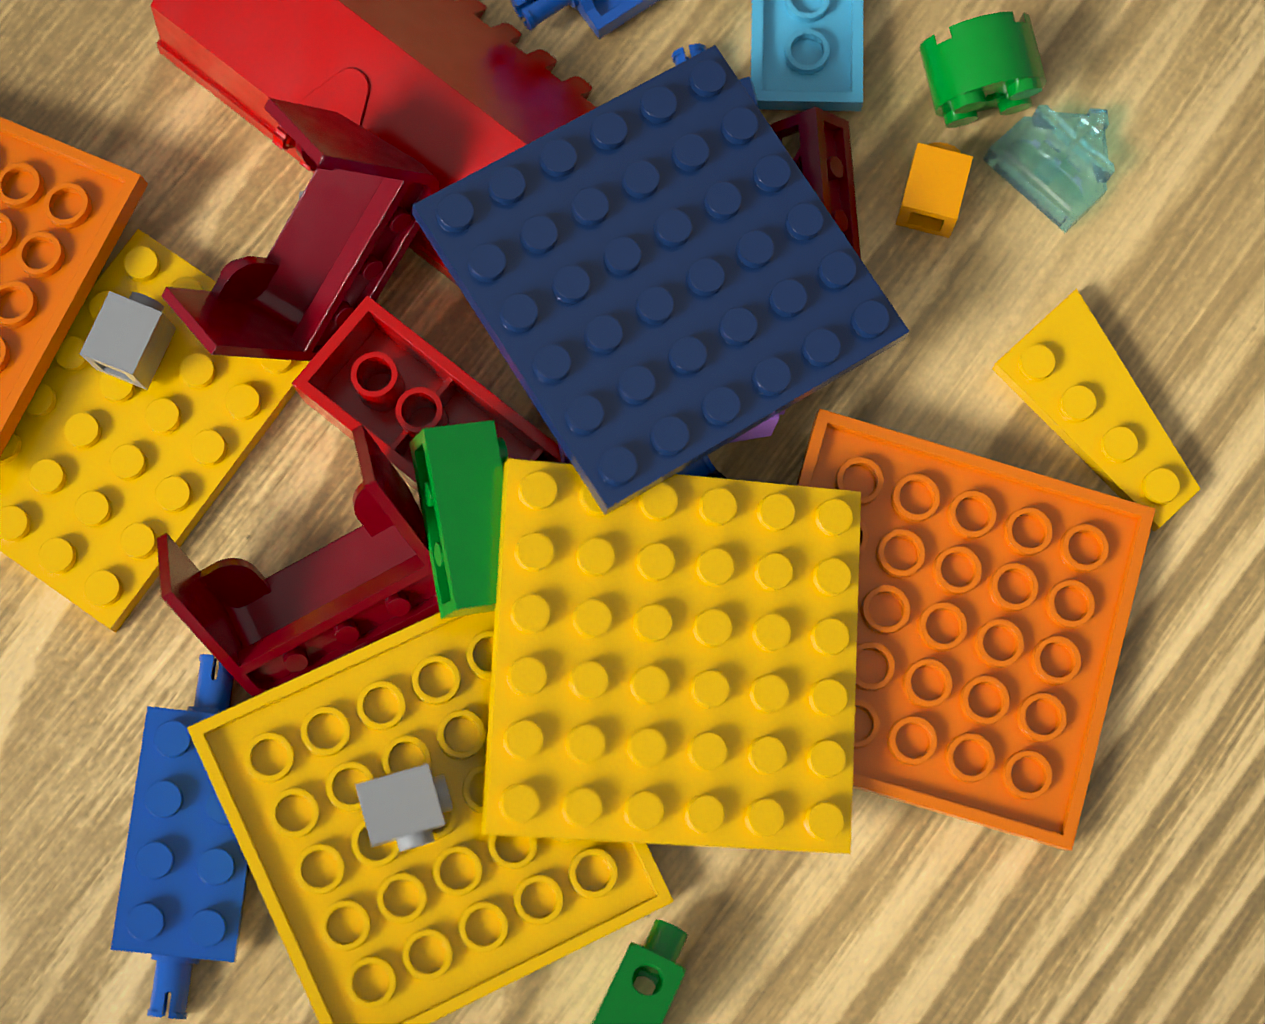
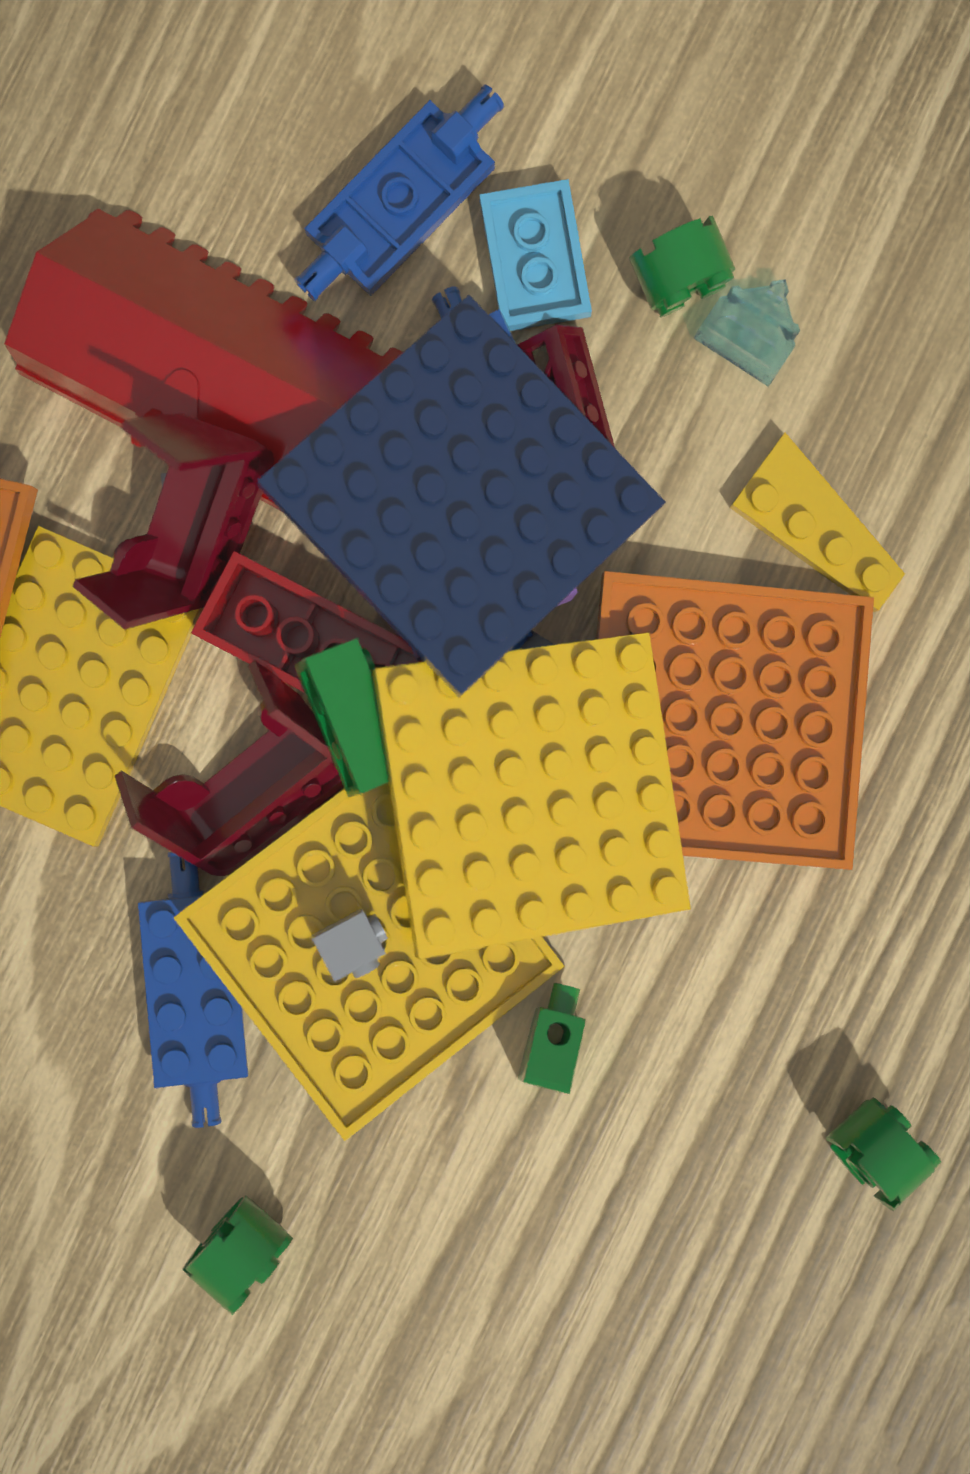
camera: 15 degrees left, 10 degrees up
(129, 338) = (54, 620): light grey brick -> none
(934, 189) = (660, 371): light orange brick -> none

